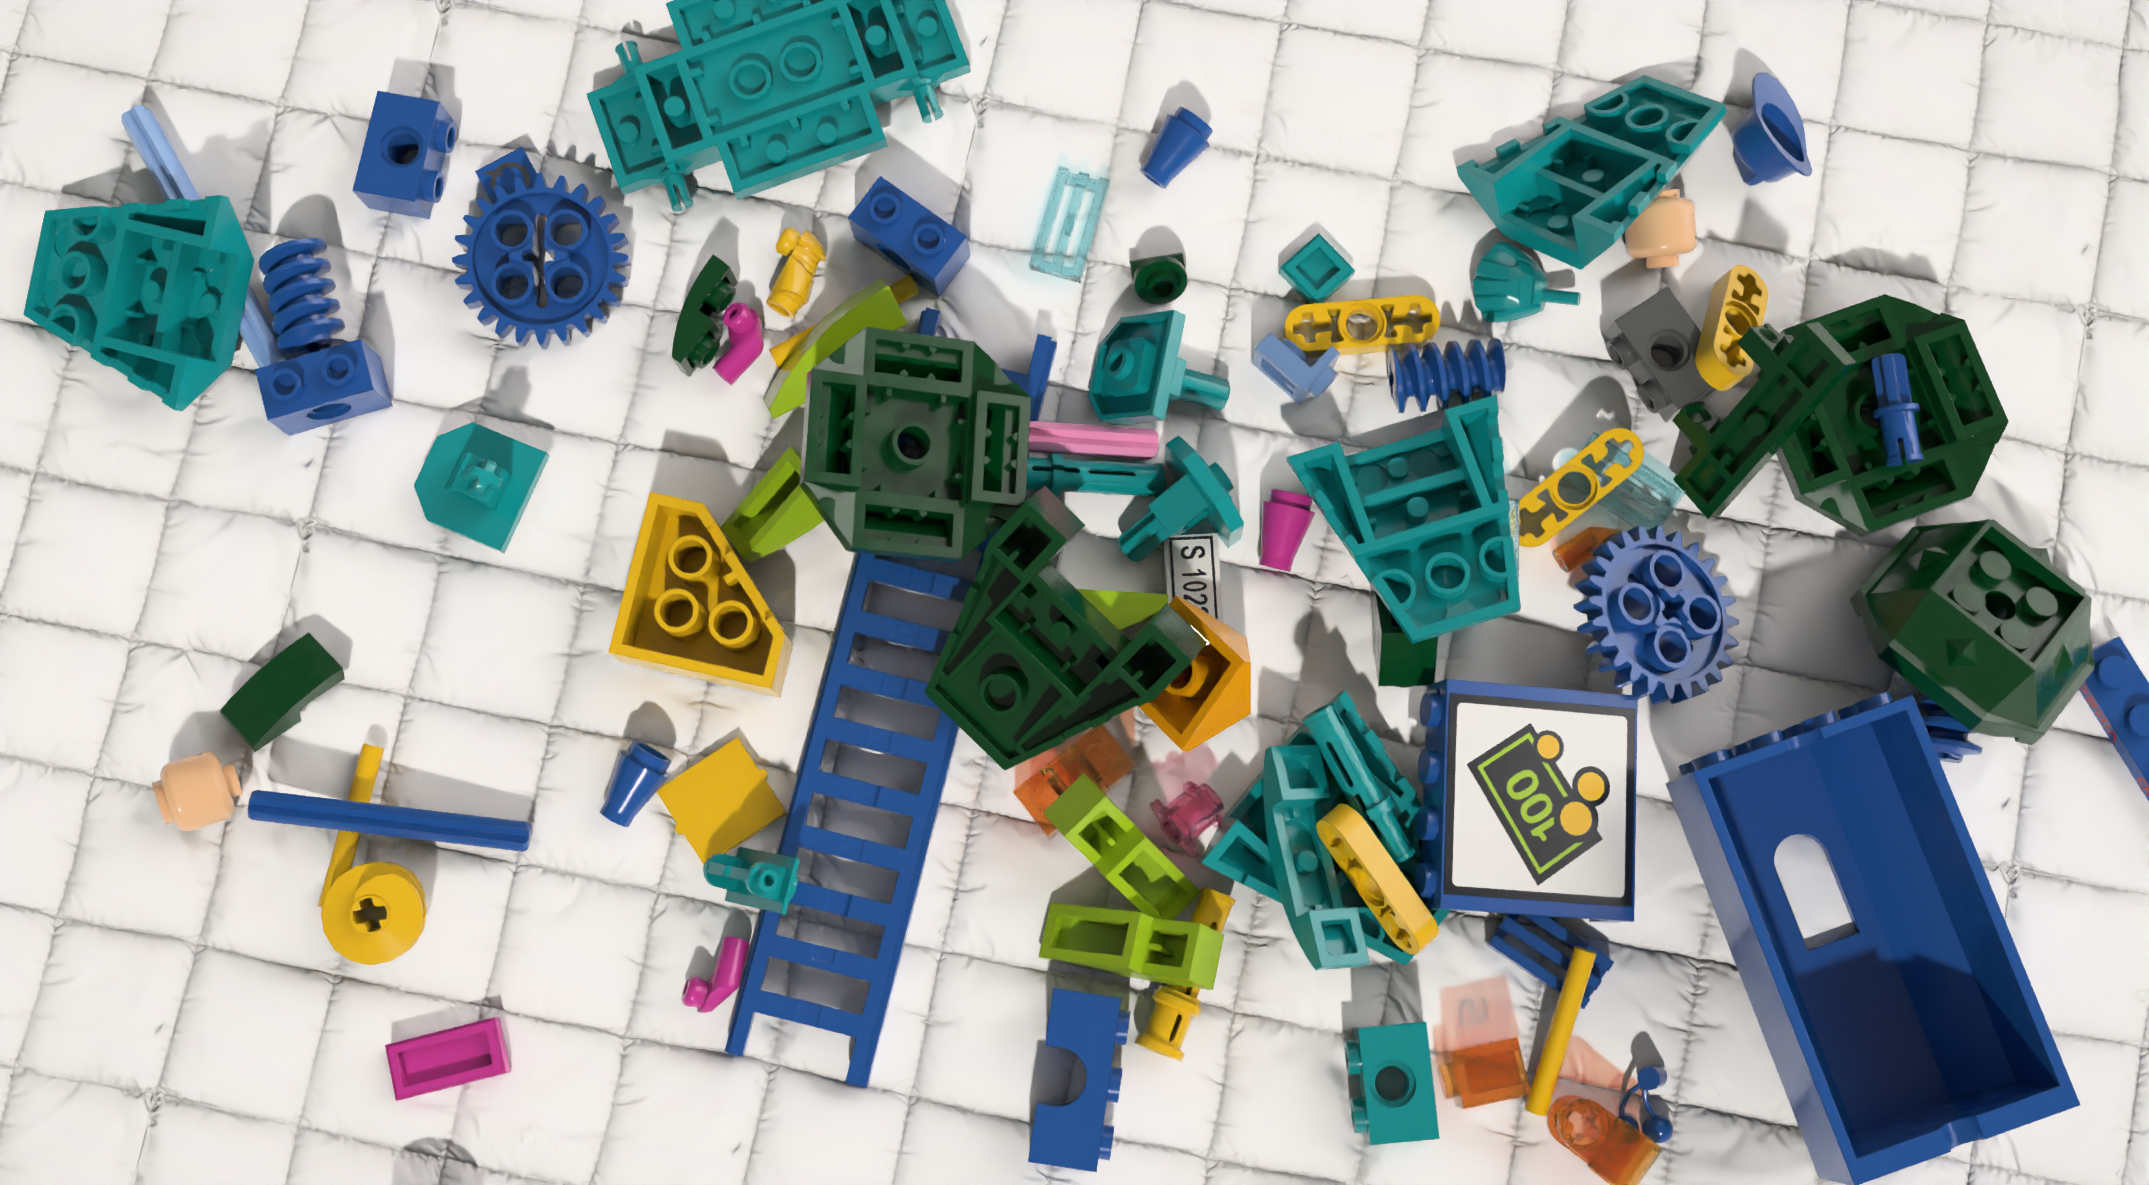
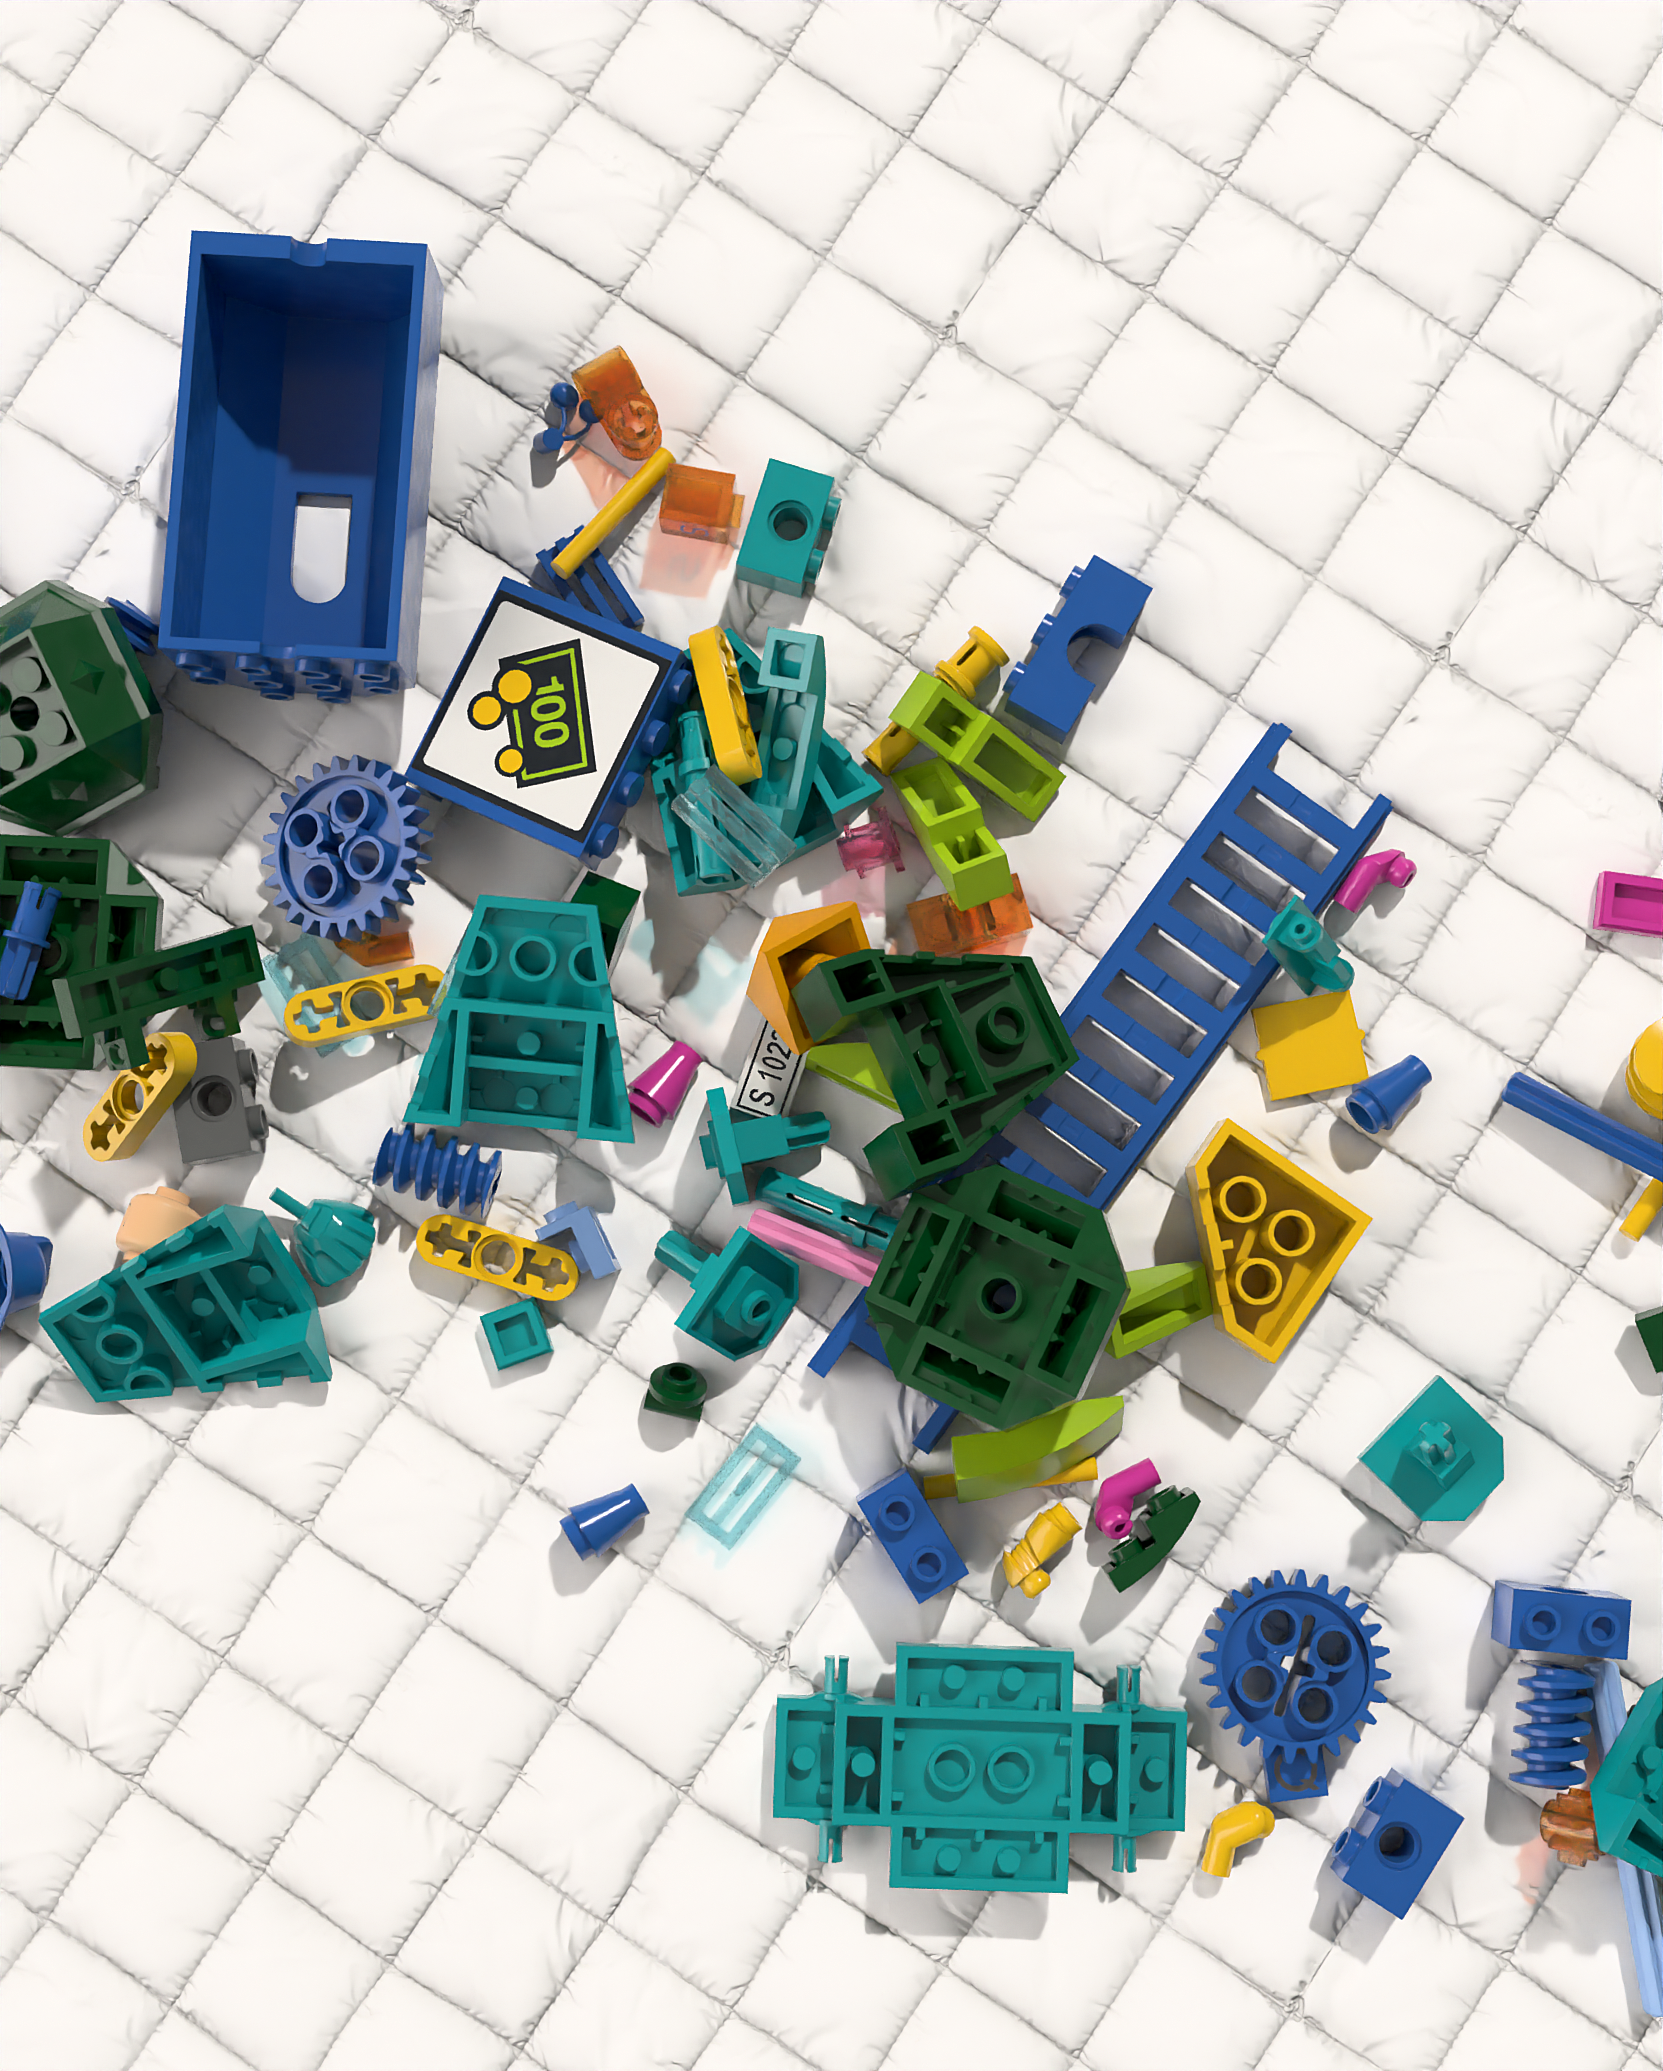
camera: 165 degrees left, 5 degrees up
(261, 222) = (1570, 1827): none -> clear orange gear
(544, 115) = (1232, 1829): none -> yellow arm
(1366, 781) = (749, 811): none -> clear light blue tile

